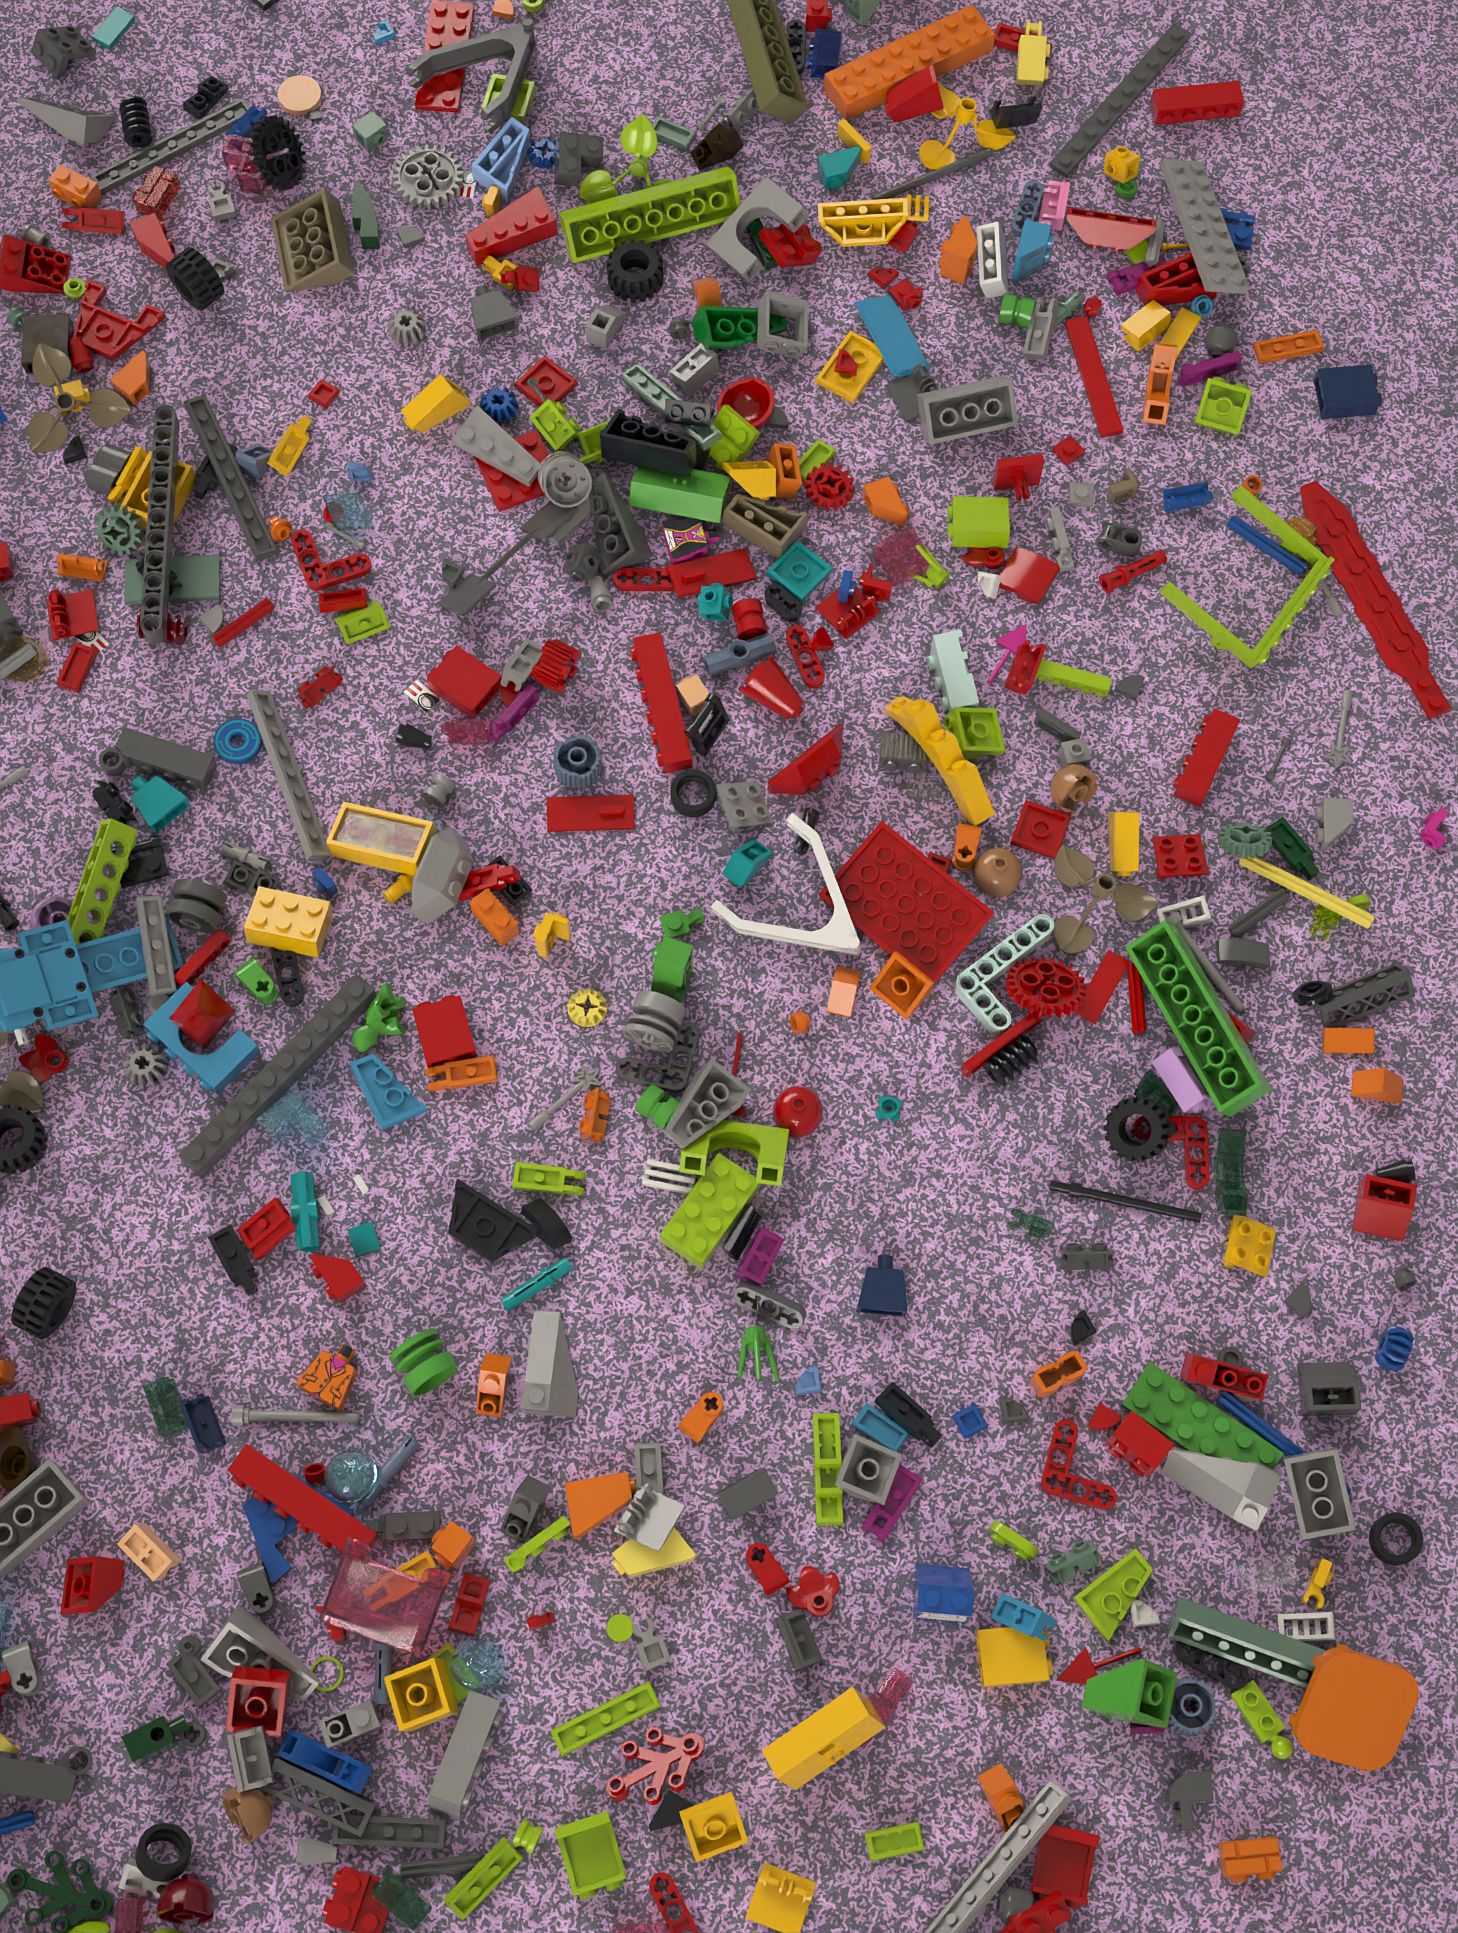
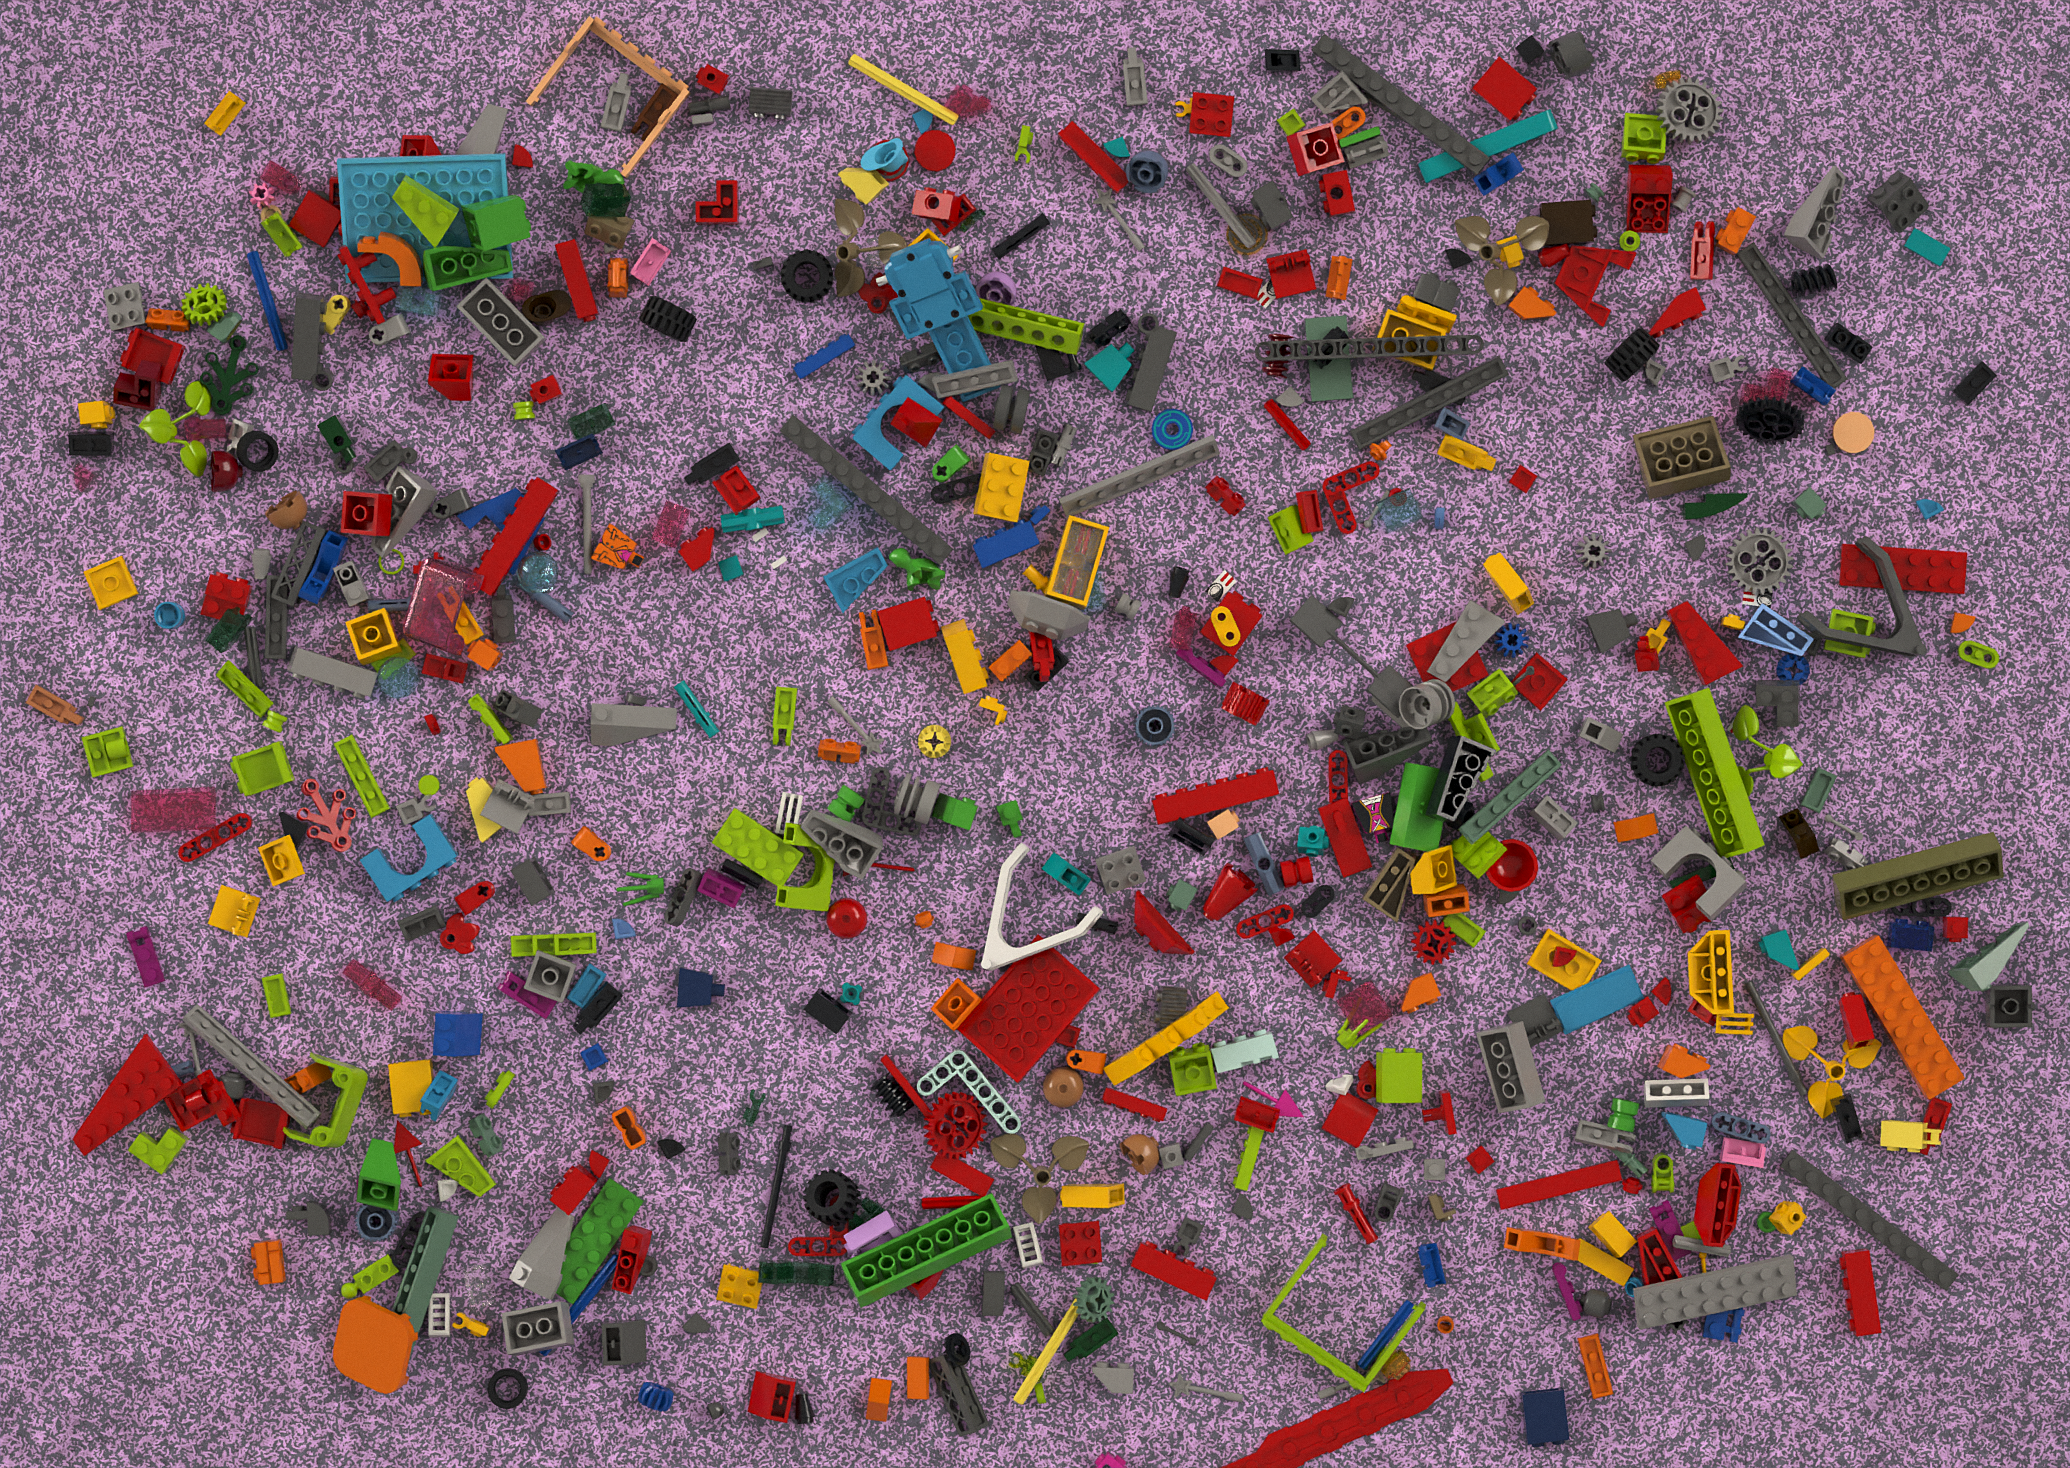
camera: 90 degrees right, 20 degrees up
(113, 1124) = (824, 356): none -> blue piece
(119, 528) = (1370, 308): sand green gear -> none
(120, 1463) = (545, 390): none -> red brick
(144, 1492) = (524, 410): none -> lime wheel
(148, 1551) = (478, 418): light nougat hinge -> none
(156, 192) = (1735, 307): clear red brick -> none
(250, 1758) = (322, 511): light grey hinge -> none
(303, 1310) = (670, 524): none -> clear pink hinge
(355, 920) = (1005, 543): none -> blue brick
(421, 1359) = (627, 623): bright green wheel -> none
(467, 682) = (1225, 626): none -> yellow plate
(486, 965) = (965, 656): none -> yellow wedge
(486, 1225) = (744, 666): black wing -> none
(493, 1384) = (614, 678): orange slope -> none
(520, 1358) = (636, 698): none -> dark grey tile
(521, 664) = (1246, 675): light grey hinge -> none
(550, 1226) = (742, 719): black slope -> none
(590, 813) = (1112, 737): red piece -> none
(688, 412) = (1492, 809): black hinge -> none
(693, 776) = (1127, 810): black tyre -> none
(709, 1614) = (439, 854): none -> dark azure arch
(731, 326) = (1595, 849): green wedge -> none
(774, 740) = (1180, 895): none -> sand green brick
(787, 307) = (1600, 915): light grey window -> none
(799, 571) = (1348, 915): teal plate -> none
(817, 402) = (1531, 930): none -> dark grey bush
(823, 1738) = (344, 942): yellow brick -> none
(846, 587) = (1329, 957): blue plate -> none
(910, 1134) = (827, 1011): none -> black hinge
(1009, 1738) = (352, 1084): none -> lime windscreen
(1016, 796) = (1134, 1104): none -> red piece
(1040, 829) = (1105, 1125): red tile -> none
(1061, 1472) = (555, 1128): red beam -> none
(1078, 277) = (1662, 1178): none -> lime piece
(1162, 741) = (1189, 1233): none -> dark grey plate
(1177, 919) = (1018, 1236): light grey piece -> none
(1223, 406) = (1526, 1302): lime plate -> none

